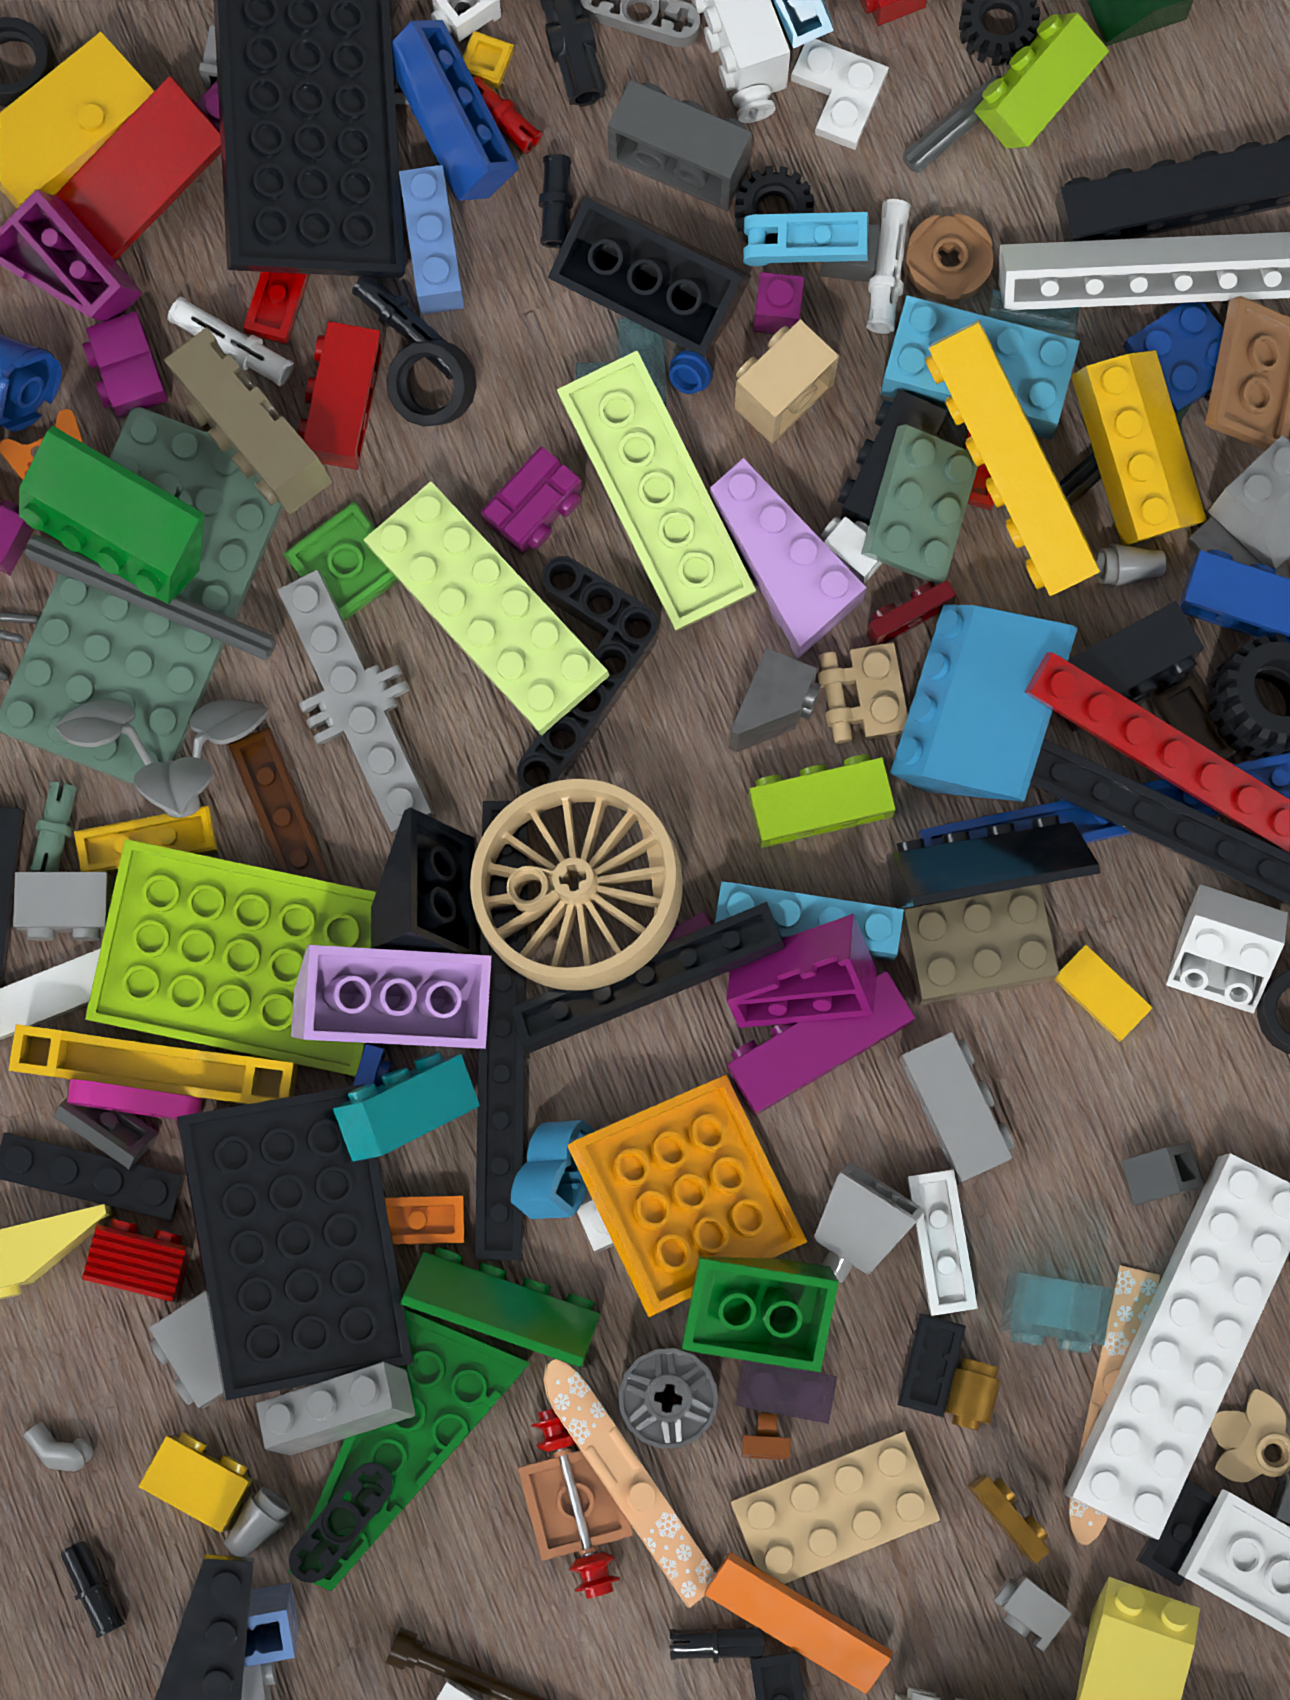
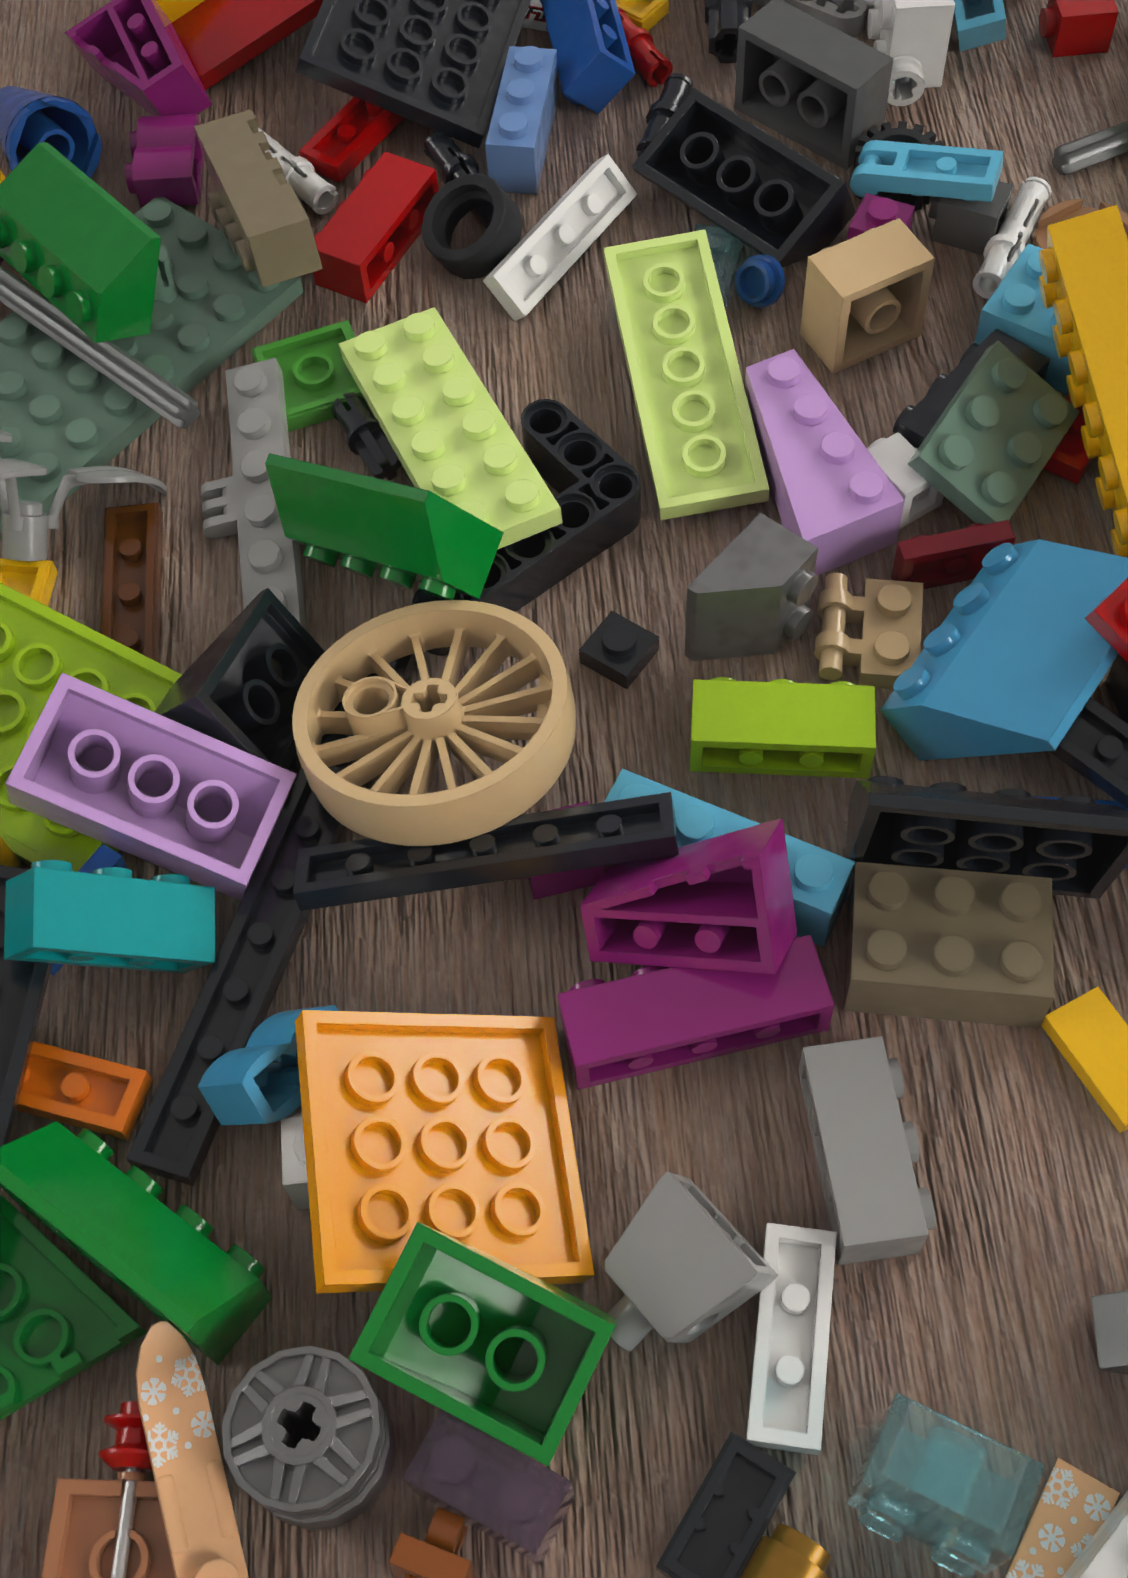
camera: 20 degrees right, 20 degrees down
(415, 619) = (366, 437): none -> black axle
(480, 731) = (382, 528): none -> green slope
(508, 366) = (560, 238): none -> white plate
(533, 501) = (540, 355): magenta brick -> none
(679, 761) = (619, 649): none -> black plate
(849, 82) = (1005, 92): white plate -> none

